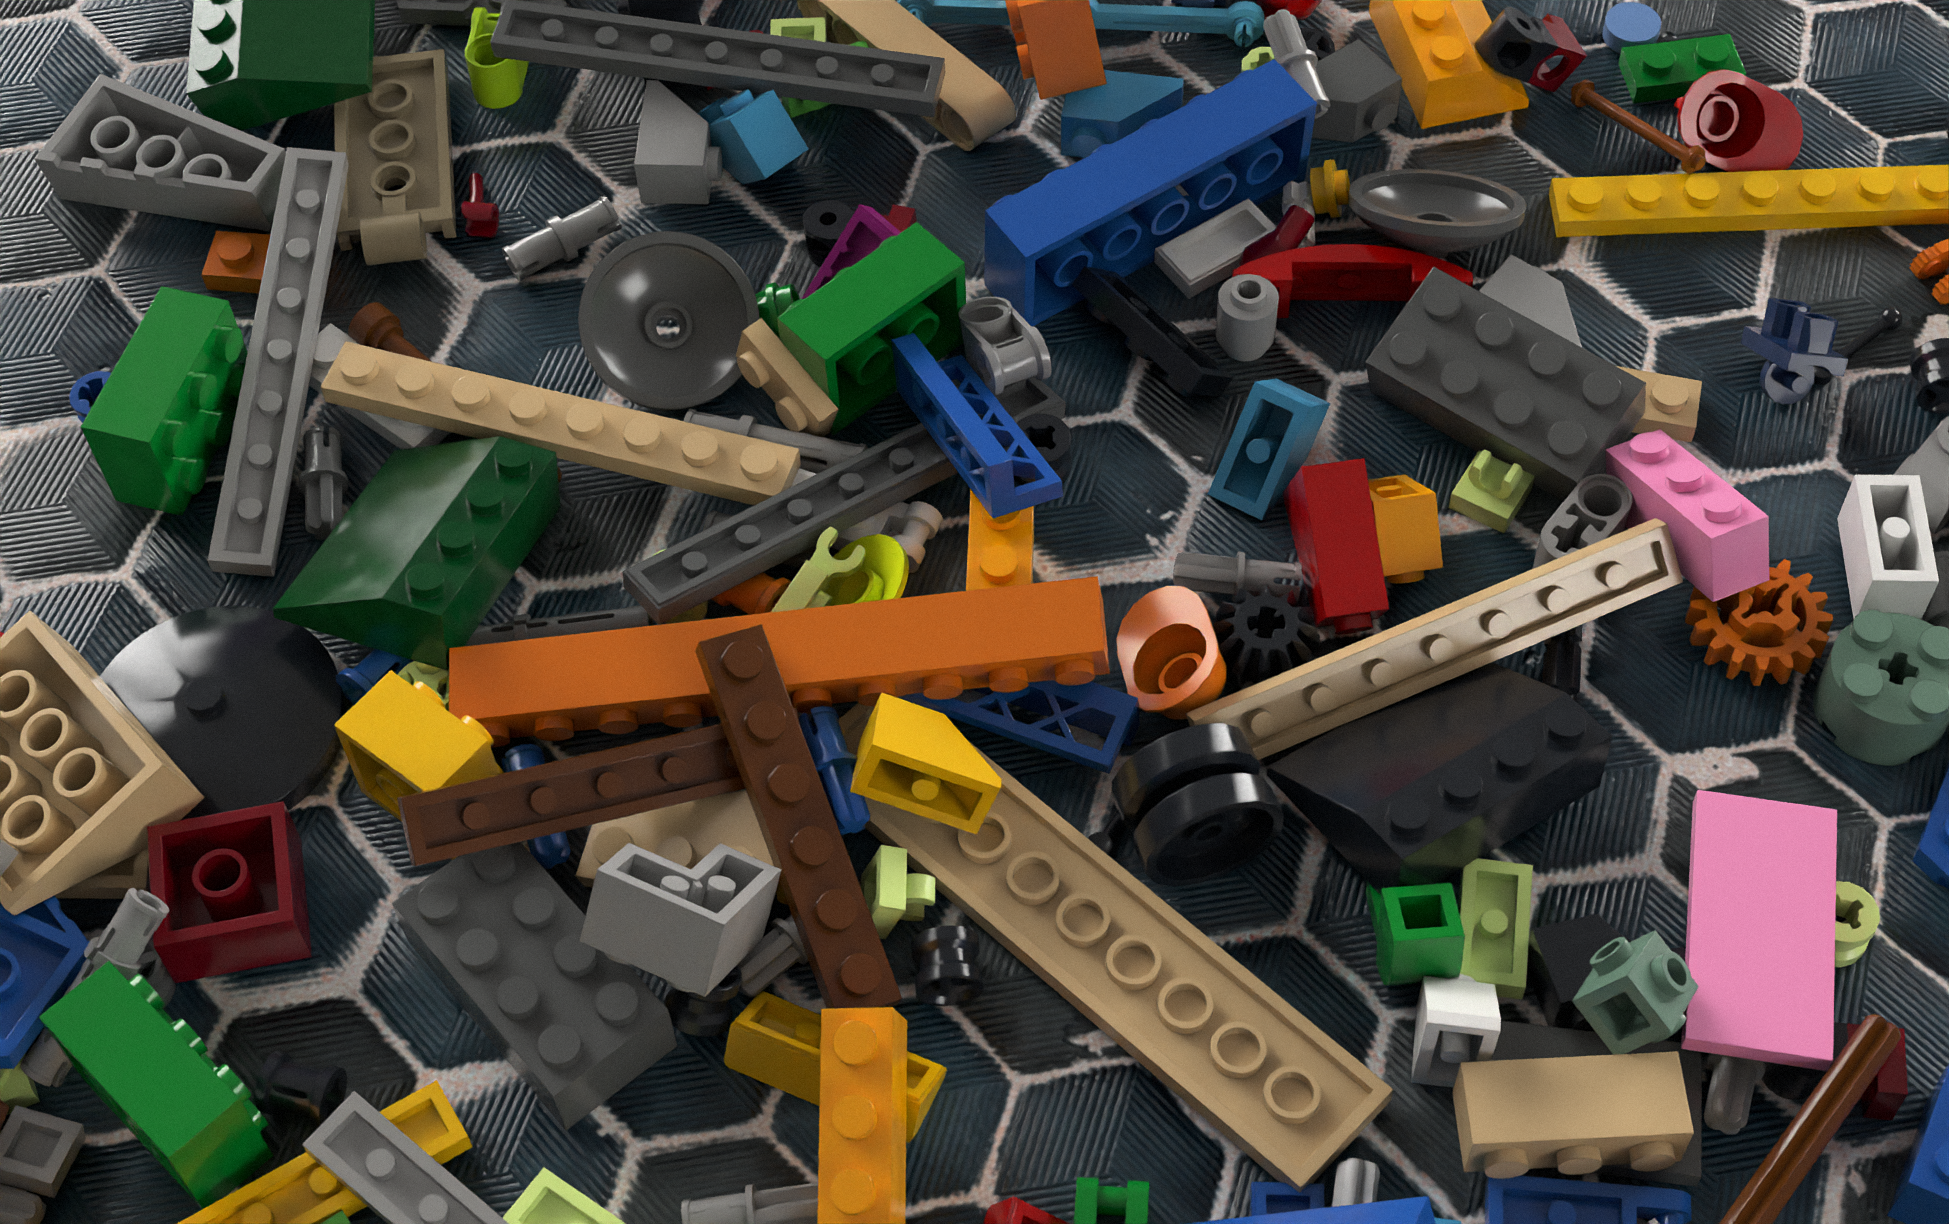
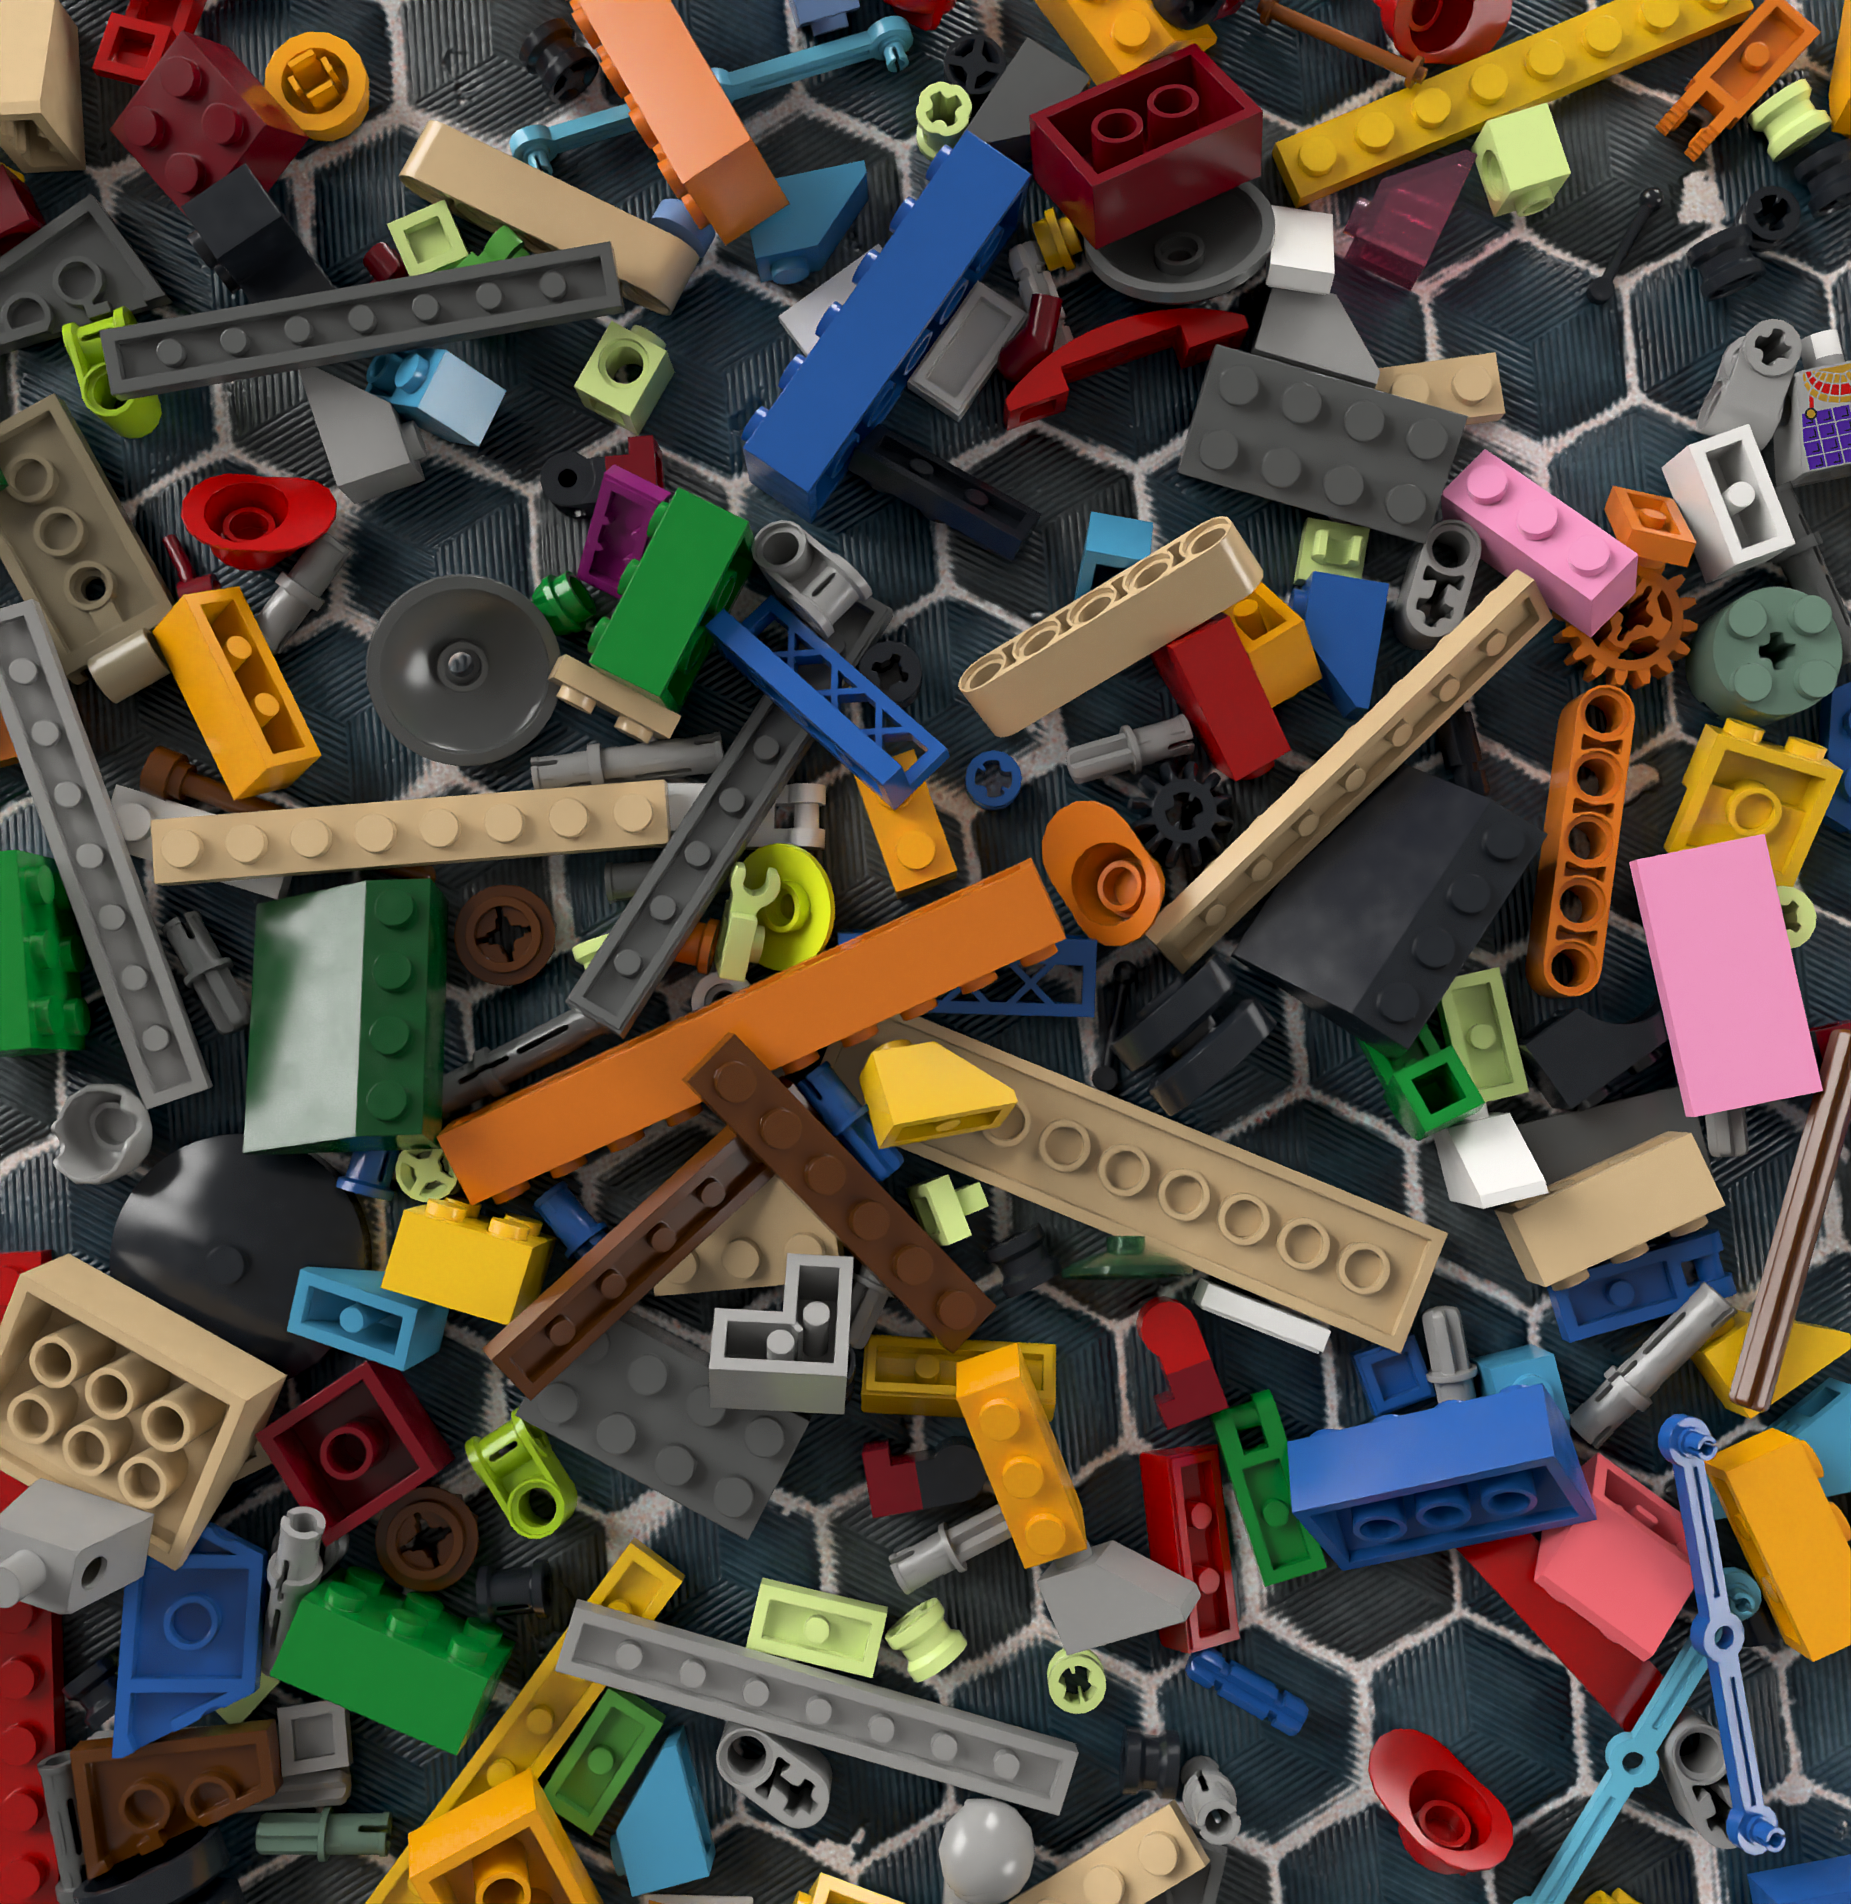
camera: 20 degrees left, 30 degrees up
(160, 568) = (102, 1134): none -> light grey hair
(227, 996) = (417, 1566): none -> reddish brown gear
(312, 782) = (361, 1318): none -> dark azure slope
(370, 978) = (519, 1471): none -> lime piece
(469, 281) = (236, 692): none -> light orange brick
(553, 176) = (257, 519): none -> red piece
(581, 524) = (481, 918): none -> reddish brown gear
(753, 1131) = (921, 1478): none -> leg
(913, 171) = (628, 403): none -> yellowish green brick
(1021, 91) = (676, 220): none -> medium blue tile
(1045, 994) = (1126, 1259): none -> clear green dish
(1069, 1098) = (1177, 1342): none -> leg
(1100, 546) = (1007, 767): none -> blue bush
(1167, 1101) = (1261, 1316): none -> white tile
(1246, 316) = (1032, 461): light grey brick -> none
(1254, 450) = (1112, 627): none -> tan beam
(1292, 54) = (978, 105): light grey axle -> none
(1430, 132) = (1146, 145): none -> dark red brick
(1478, 537) = (1345, 632): none -> blue slope
(1541, 247) = (1301, 251): none -> white tile
(1635, 992) = (1645, 1098): sand green brick -> none
(1653, 259) = (1405, 218): none -> clear pink slope
(1658, 763) = (1600, 820): none -> orange beam
(1771, 249) = (1521, 161): none -> yellowish green brick
(1793, 344) = (1579, 292): dark blue hips -> none
(1801, 542) = (1650, 527): none -> orange plate
(1874, 797) = (1753, 789): none -> yellow plate

